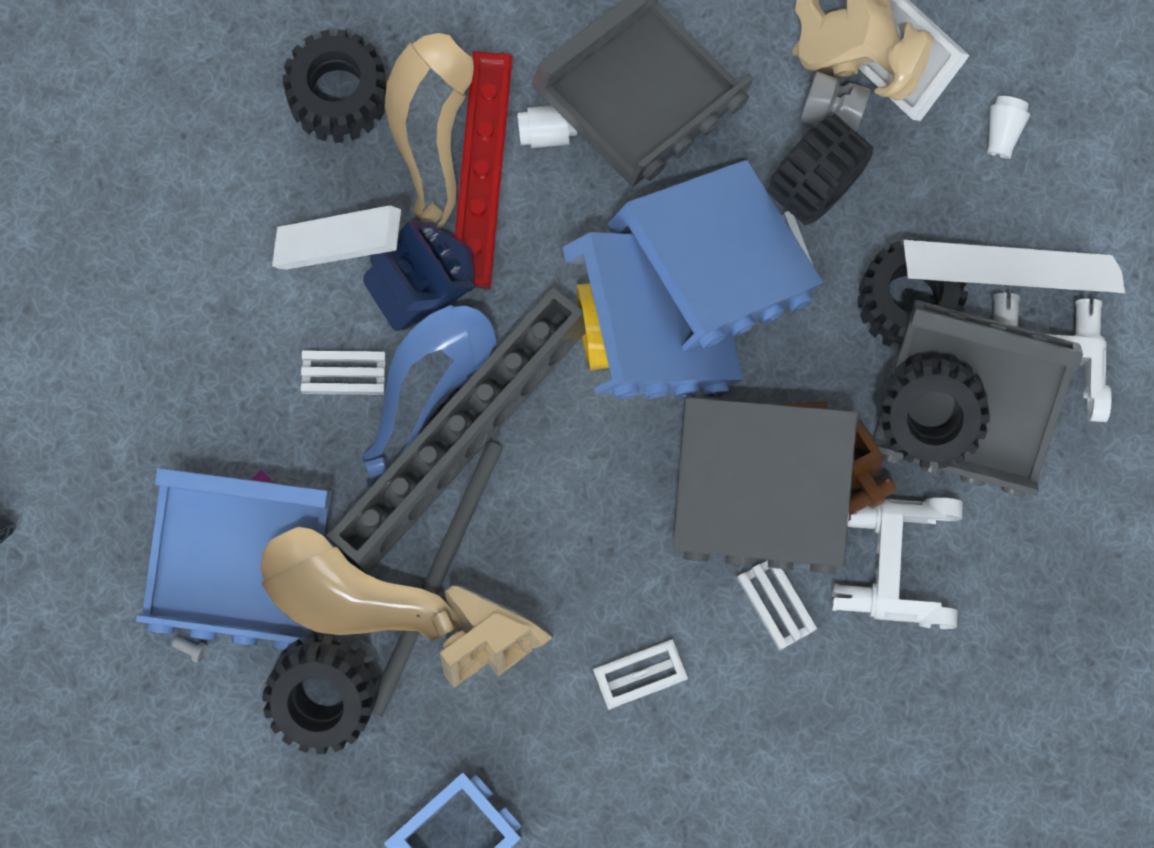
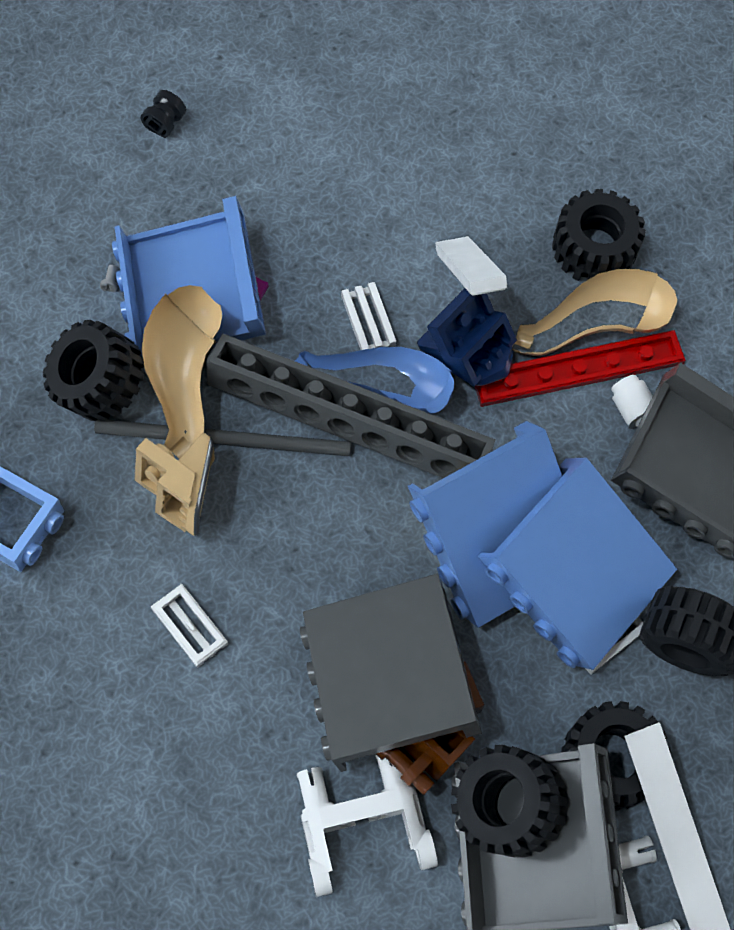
camera: 70 degrees right, 10 degrees down
(795, 634) = (264, 749): white tile -> none

